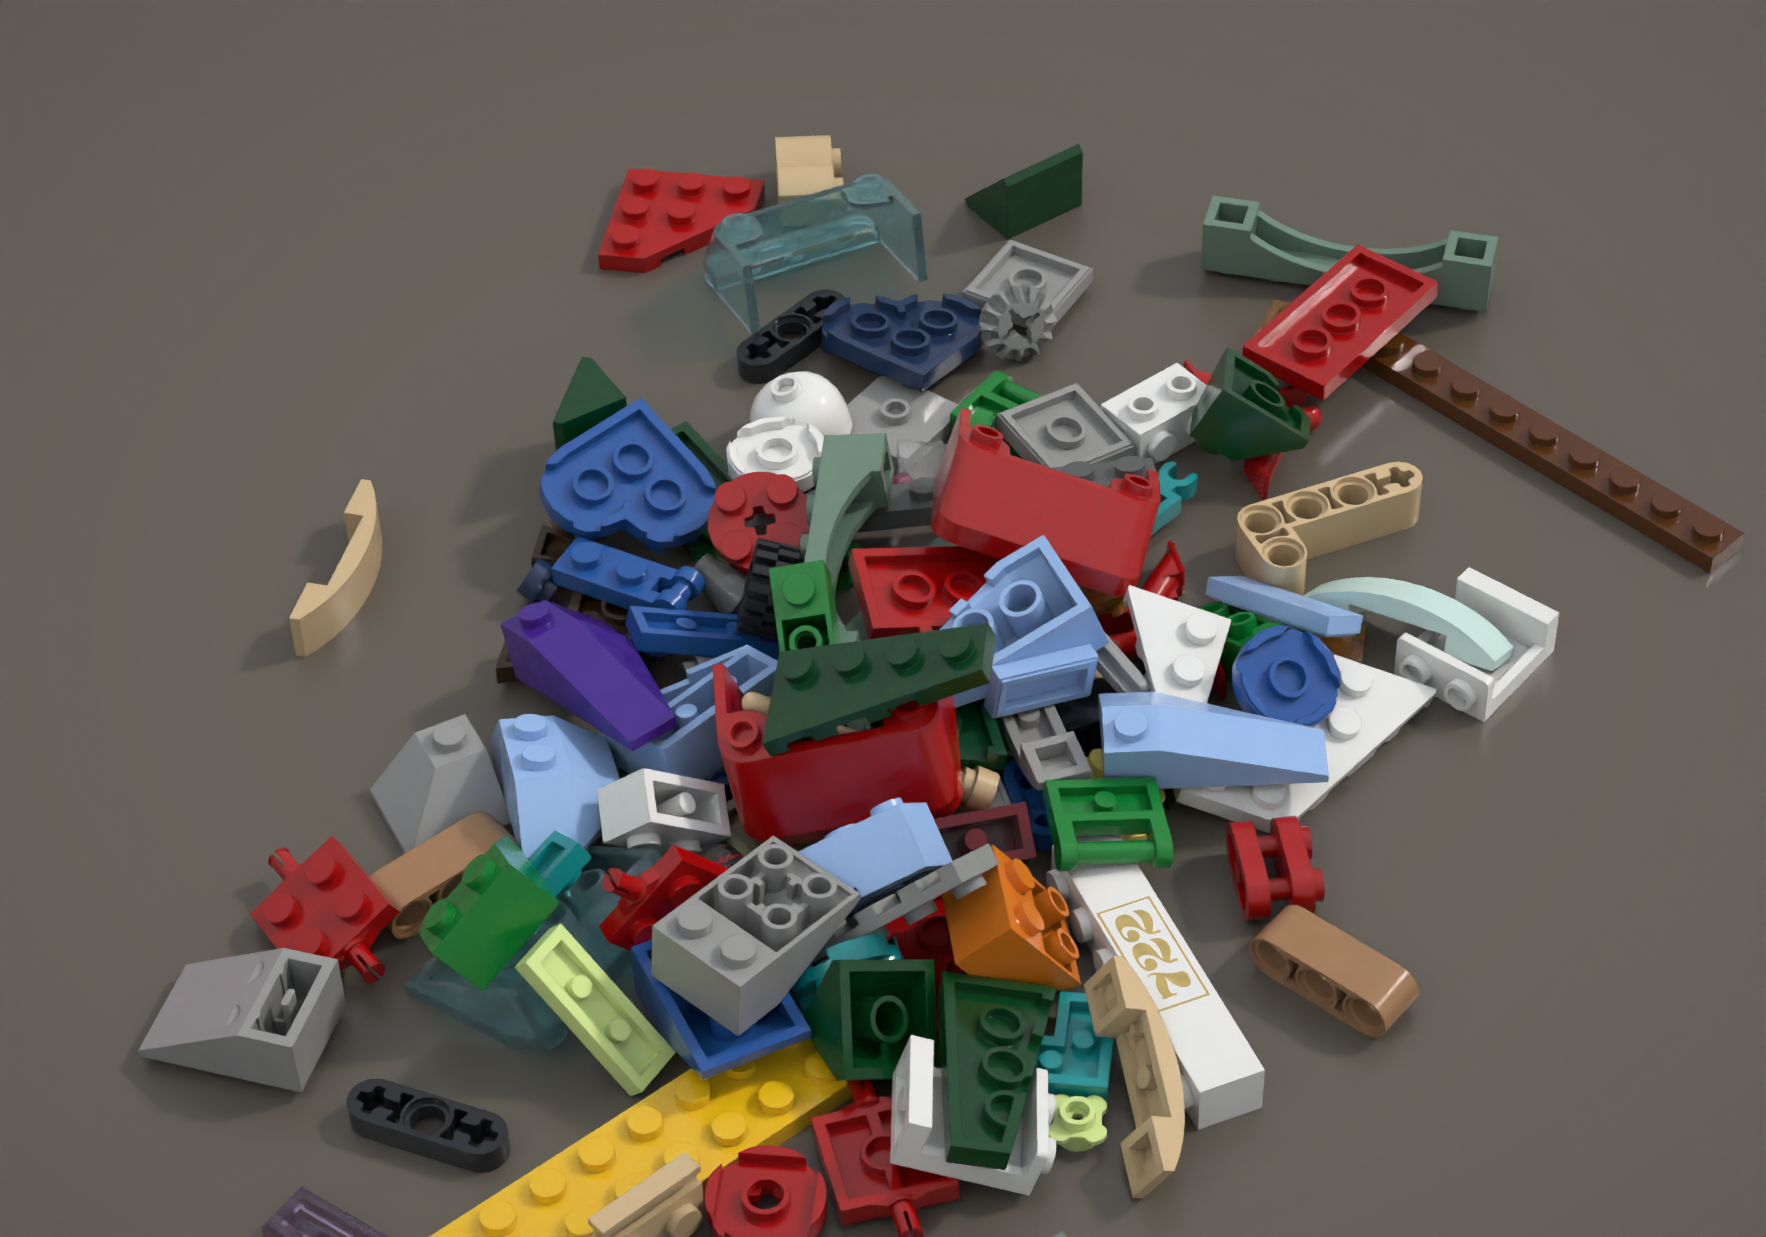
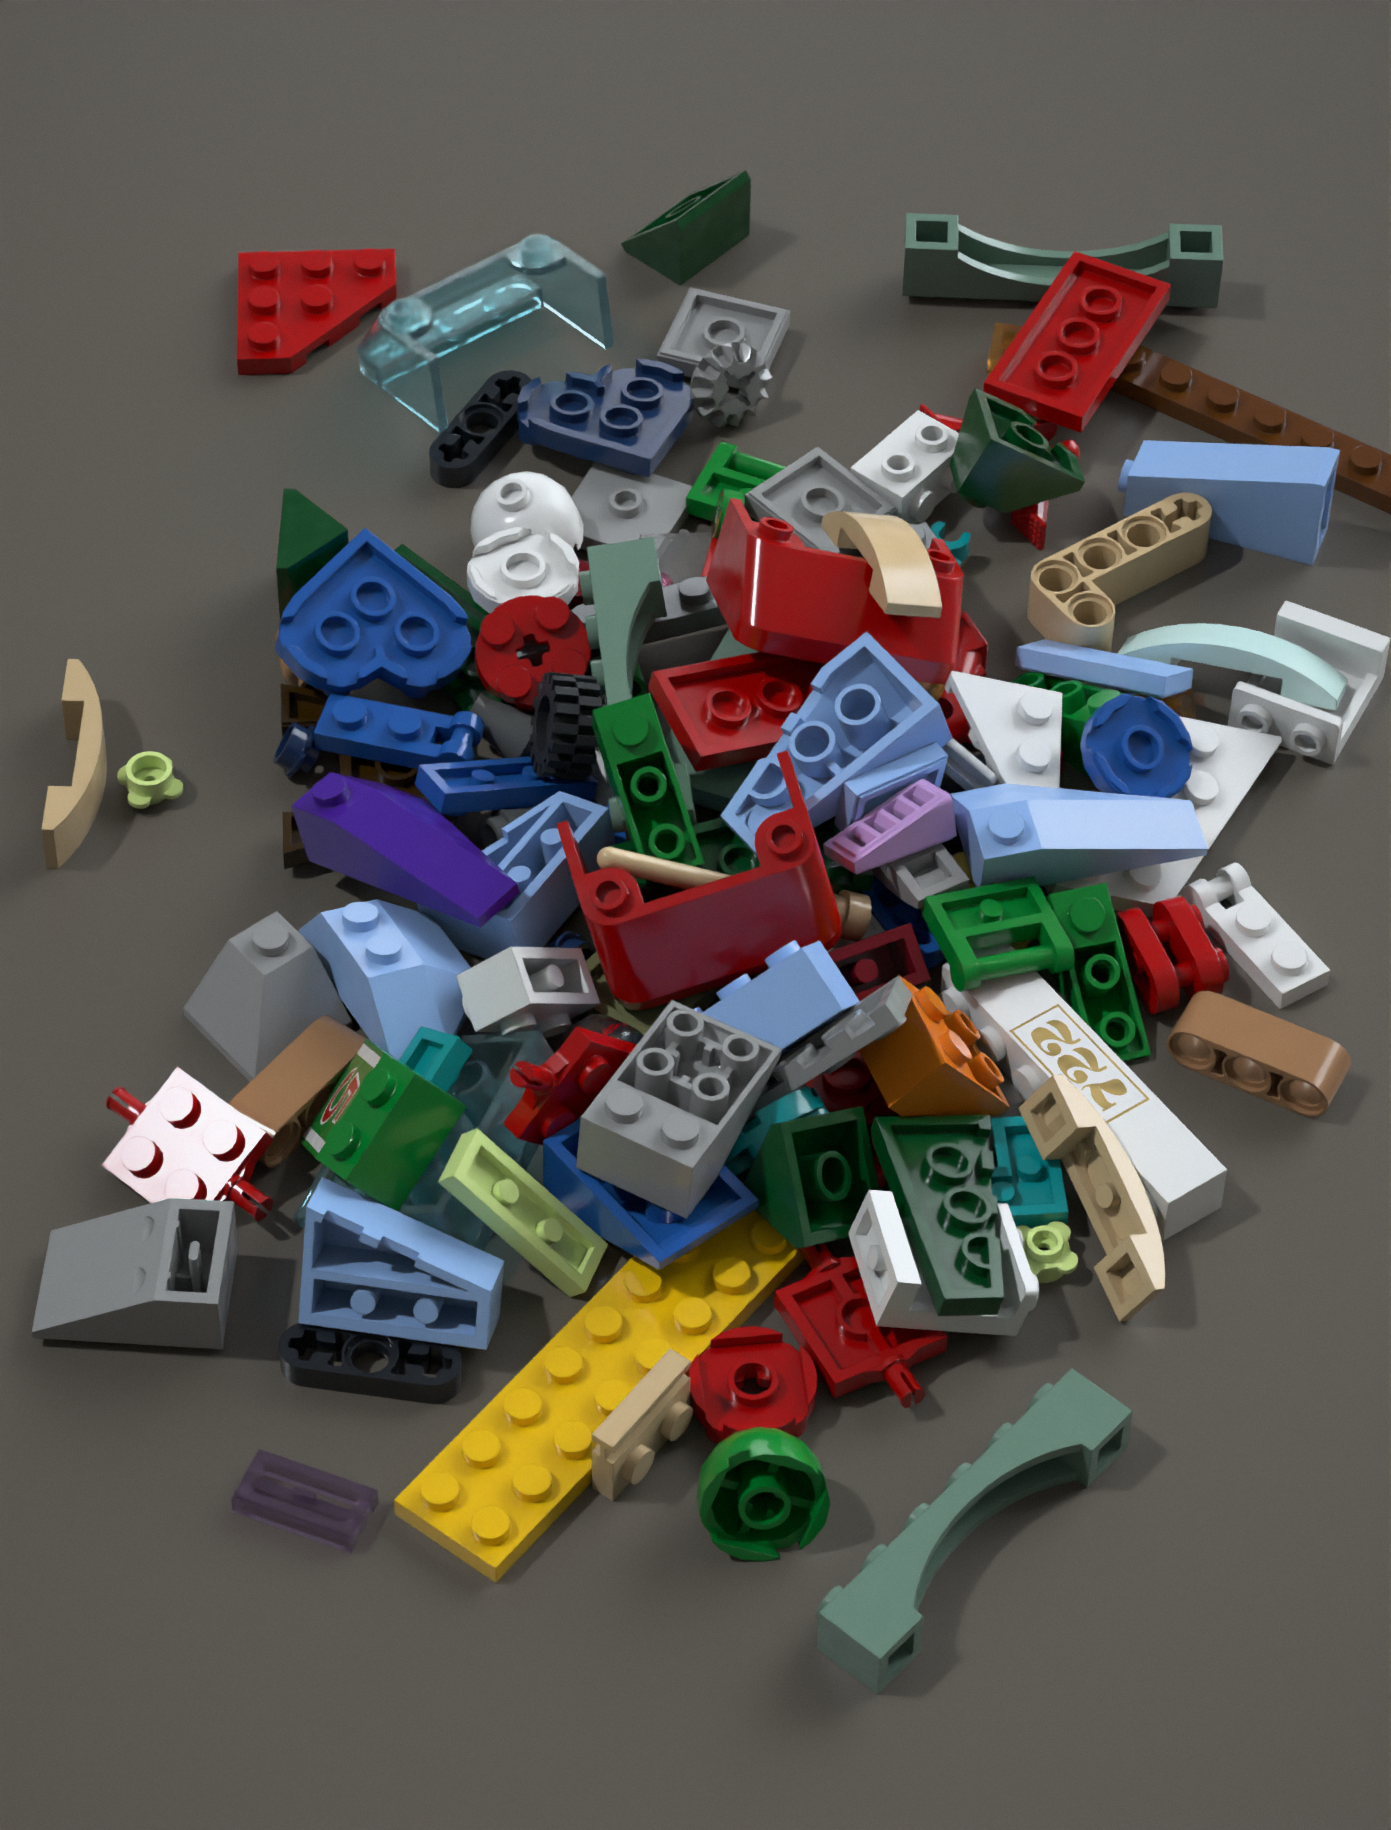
camera: 15 degrees left, 5 degrees up
(405, 591) = (149, 779): none -> yellowish green plate
(463, 1046) = (393, 1274): none -> light blue wedge
(805, 166) = (440, 234): tan brick -> none
(870, 679) = (713, 824): dark green wing -> none
(1037, 715) = (896, 828): none -> lavender slope
(1093, 480) = (902, 570): none -> tan slope
(1198, 874) = (1100, 980): none -> green slope
(1365, 865) = (1257, 936): none -> white plate
(1468, 471) = (1258, 494): none -> light blue slope

